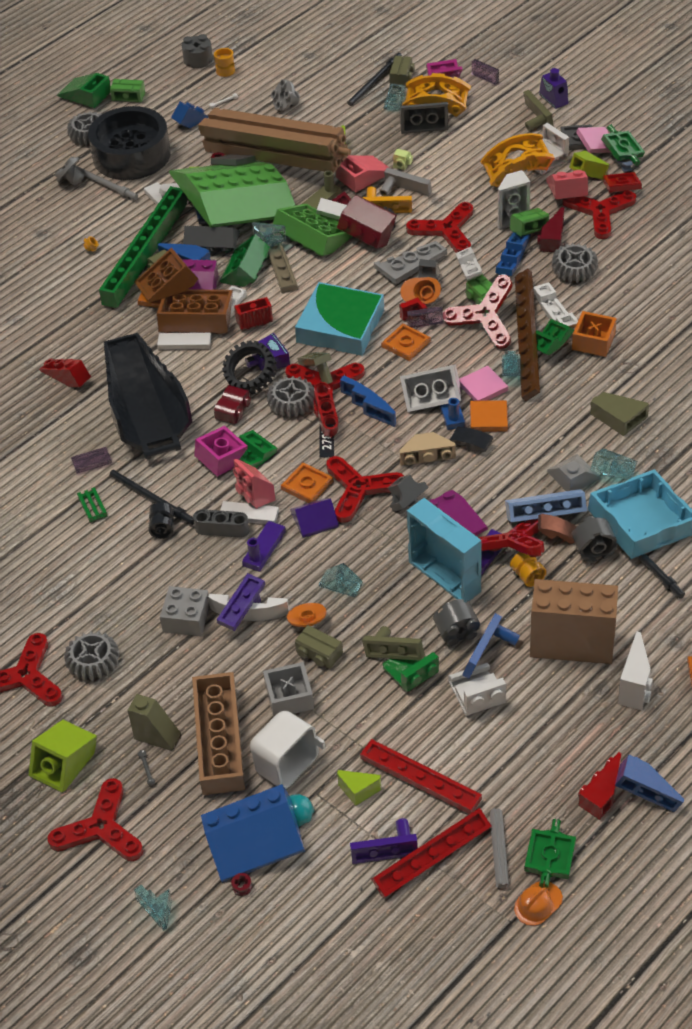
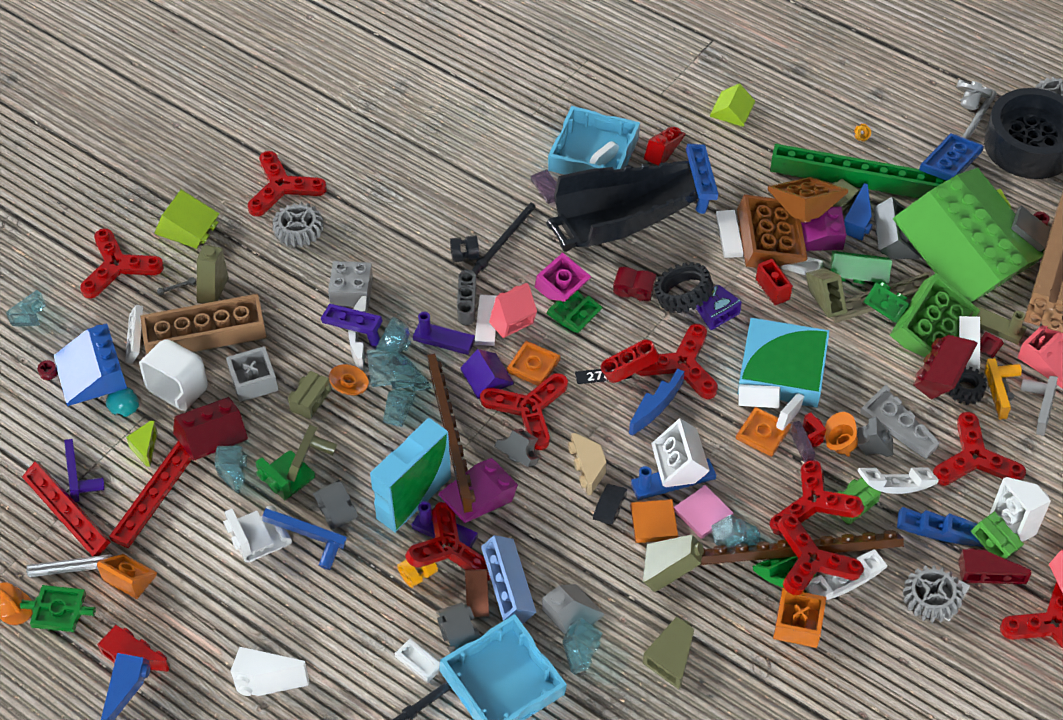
camera: 80 degrees right, 5 degrees up
(27, 324) = (733, 105): none -> lime slope
(53, 419) = (585, 134): none -> medium azure tile
(69, 411) = (605, 154): none -> white tile
(81, 497) = (486, 196): green tile -> none
(126, 335) = (702, 176): none -> blue piece
(146, 189) = (951, 157): none -> blue tile
(207, 798) = (134, 334): none -> white tile
(267, 571) = (395, 337): none -> clear light blue cylinder
(270, 233) = (904, 277): clear light blue slope -> none
(272, 280) = (827, 291): none -> olive slope
(290, 249) = (886, 302): none -> green bracket
(291, 397) = (653, 323): light grey gear -> none
(302, 580) = (394, 370): none -> clear light blue slope
(320, 360) = (699, 341): olive piece -> none
(352, 724) = (209, 427): none -> dark red slope
(375, 334) = (759, 396): none -> white tile
(378, 533) = (449, 423): none -> reddish brown plate
(395, 317) = (789, 411): none -> white tile
(397, 711) = (230, 464): none -> clear light blue slope
(516, 795) = (126, 574): none -> orange slope
(536, 399) = (670, 560): none -> slope
(547, 313) = (823, 562): none -> red piece
(573, 621) = (320, 602): medium nougat brick -> none
(619, 574) = (418, 660): none -> white tile

